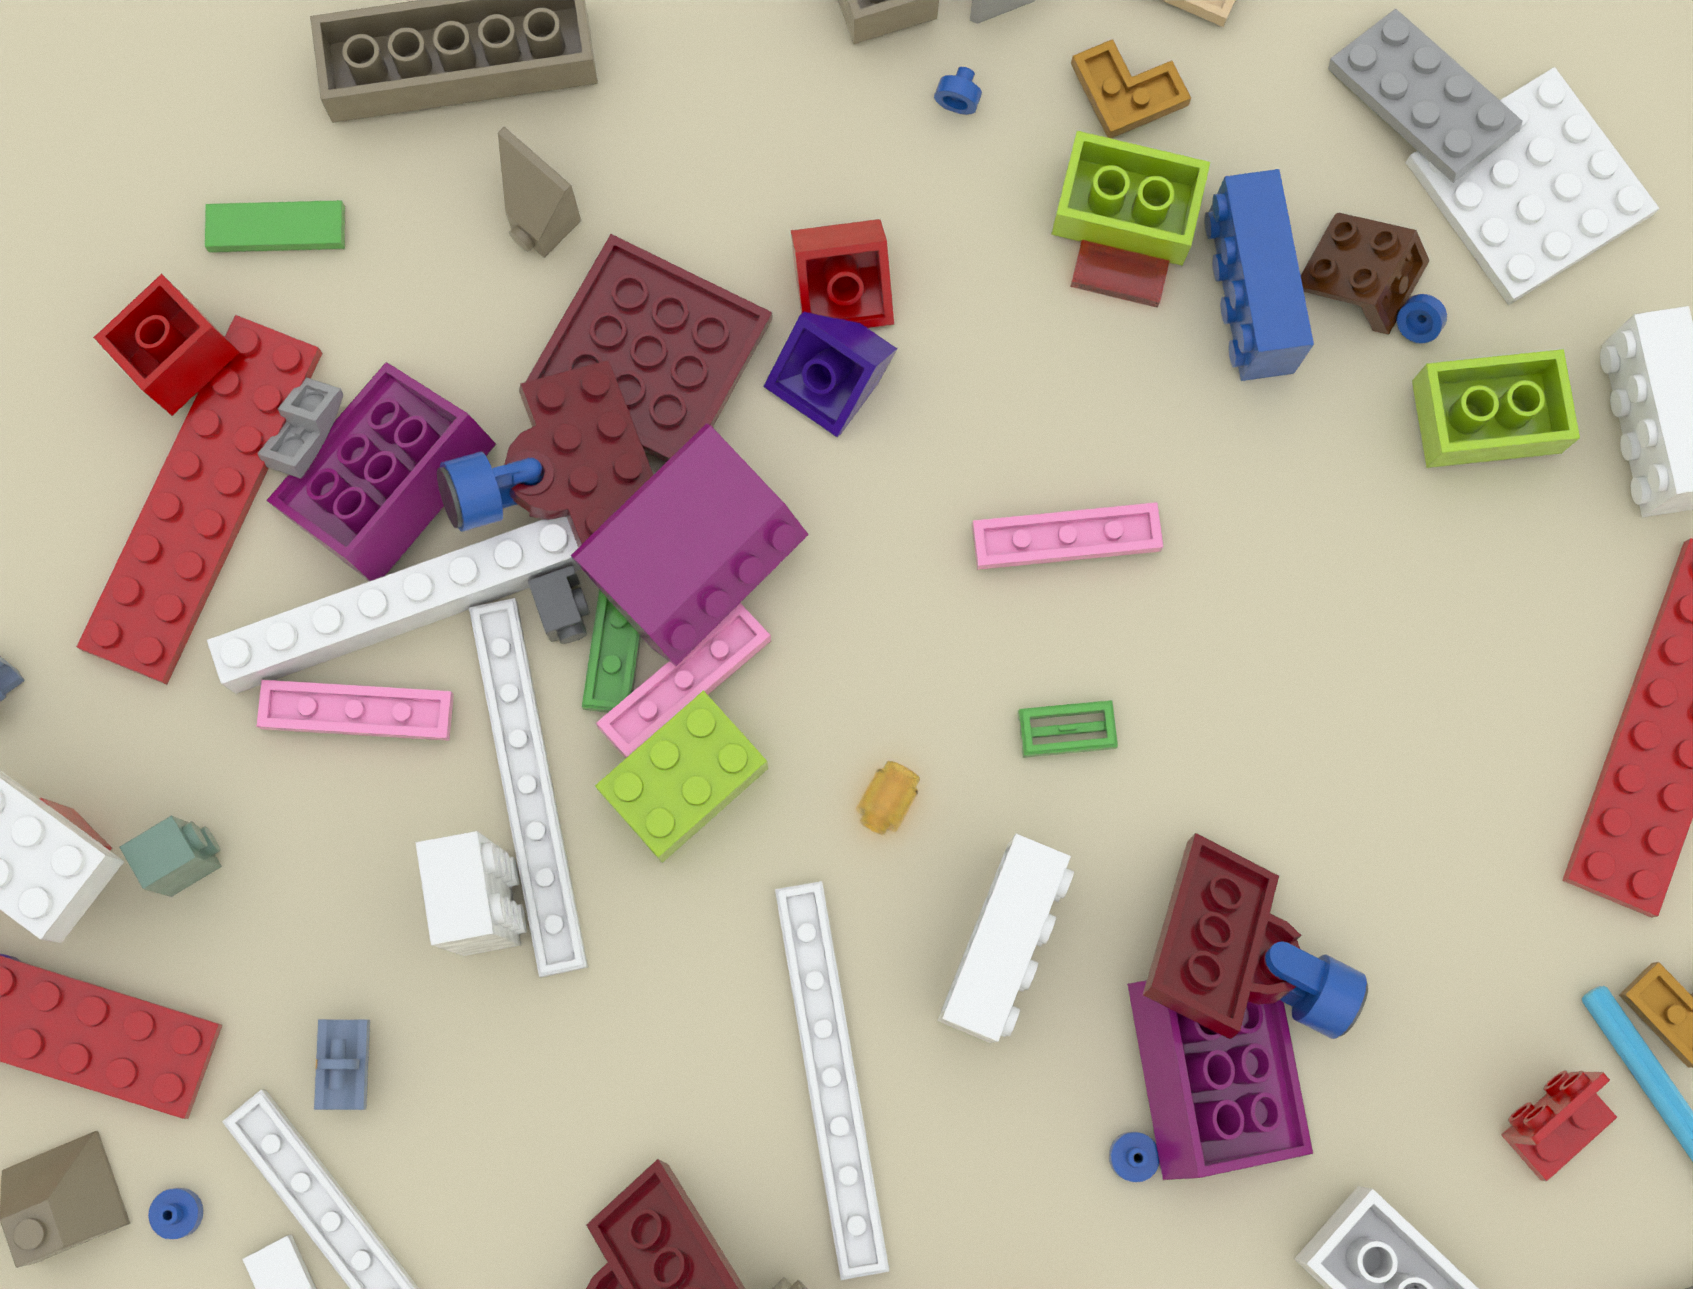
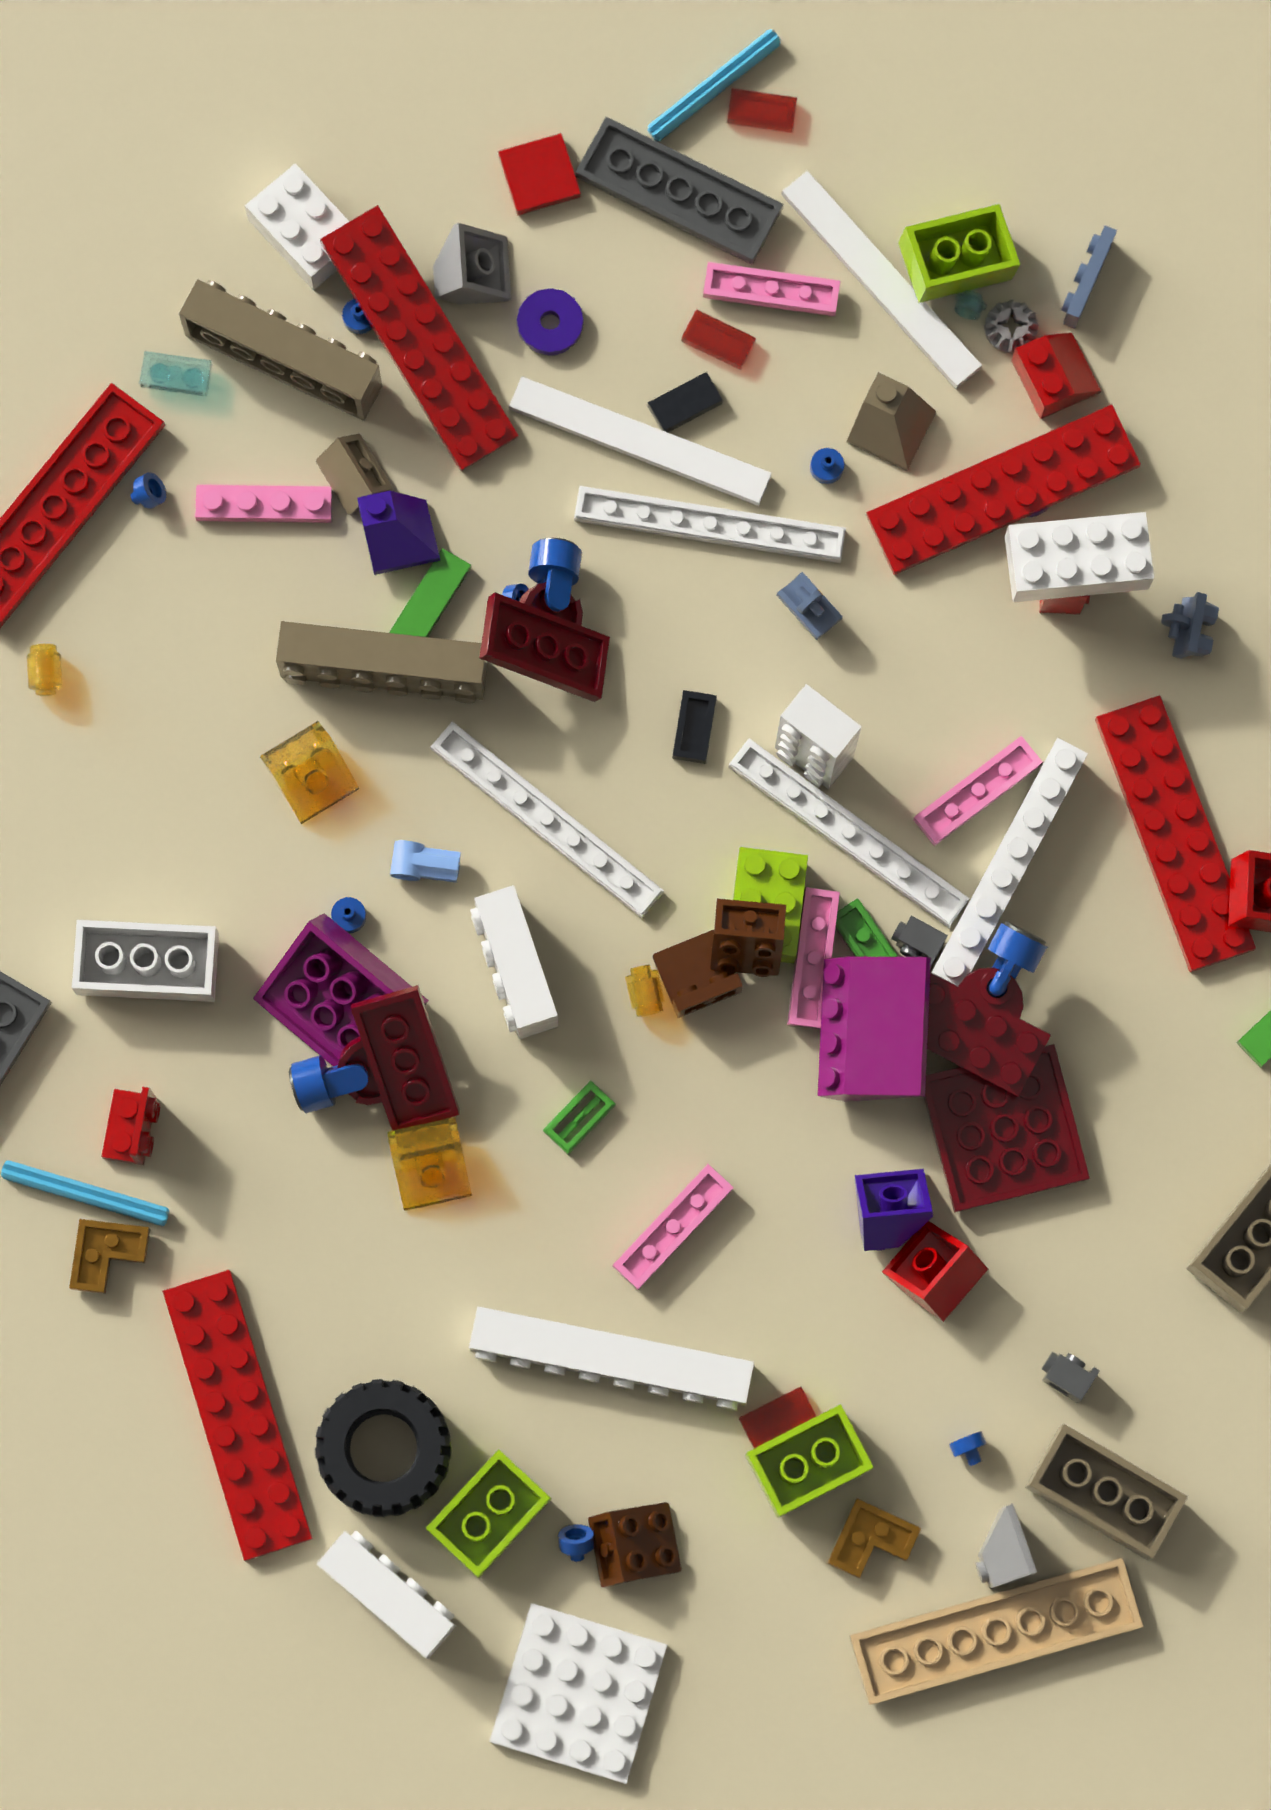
camera: 140 degrees right, 0 degrees up
(172, 856) = (997, 631): sand green brick -> none
(309, 417) = (1158, 927): light grey slope -> none
(378, 472) = (1091, 927): magenta slope -> none
(535, 197) = (1152, 1157): dark tan slope -> none
(584, 1041) = (694, 726): none -> black tile
(734, 750) = (748, 937): none -> reddish brown bracket
(802, 73) = (1068, 1375): none -> dark grey brick
(818, 768) = (689, 978): none -> reddish brown bracket
(1013, 1151) = (415, 861): none -> light blue piece
(1241, 461) = (611, 1357): none -> white brick
(1259, 275) = (692, 1474): brick -> none
(1267, 812) = (429, 1163): none -> clear yellow slope
(1425, 95) = (690, 1689): light grey plate -> none
(1599, 522) = (349, 1413): none -> black tyre

